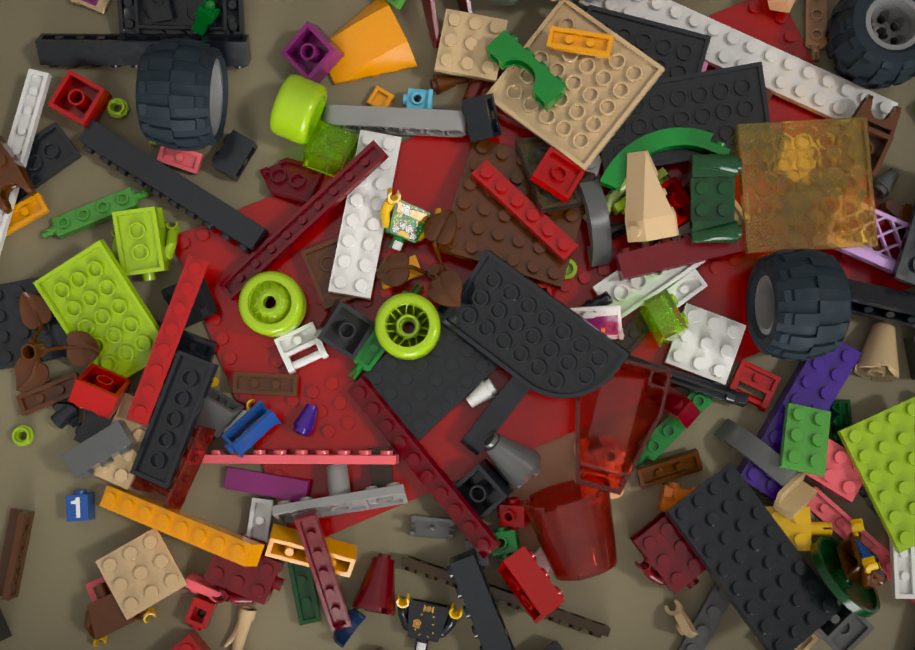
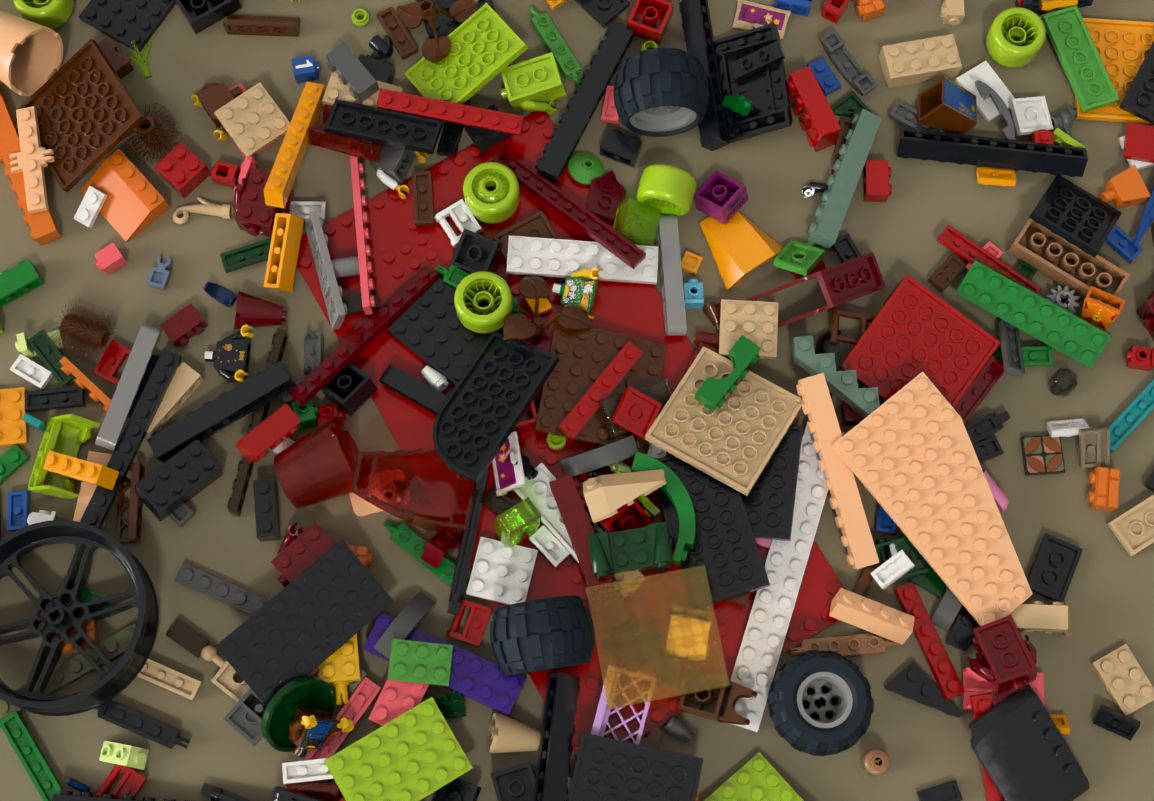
camera: 85 degrees right, 10 degrees down
(99, 390) = (402, 66): red brick -> none
(249, 429) = (382, 188): blue window -> none
(258, 203) = (582, 173): none -> bright green dish
(266, 484) = (337, 211): magenta tile -> none
(305, 421) = (395, 235): dark purple cone -> none
(323, 570) = (267, 262): dark red tile -> none
(481, 117) = (682, 345): black brick -> none
(513, 459) = (378, 407): dark grey cone -> none
(580, 42) = (761, 417): light orange plate -> none
(608, 594) = (266, 509): none -> black brick
(668, 468) = (384, 552): reddish brown plate -> none
(683, 623) = (246, 579): tan plate -> none
(794, 496) = (368, 661): tan panel -> none

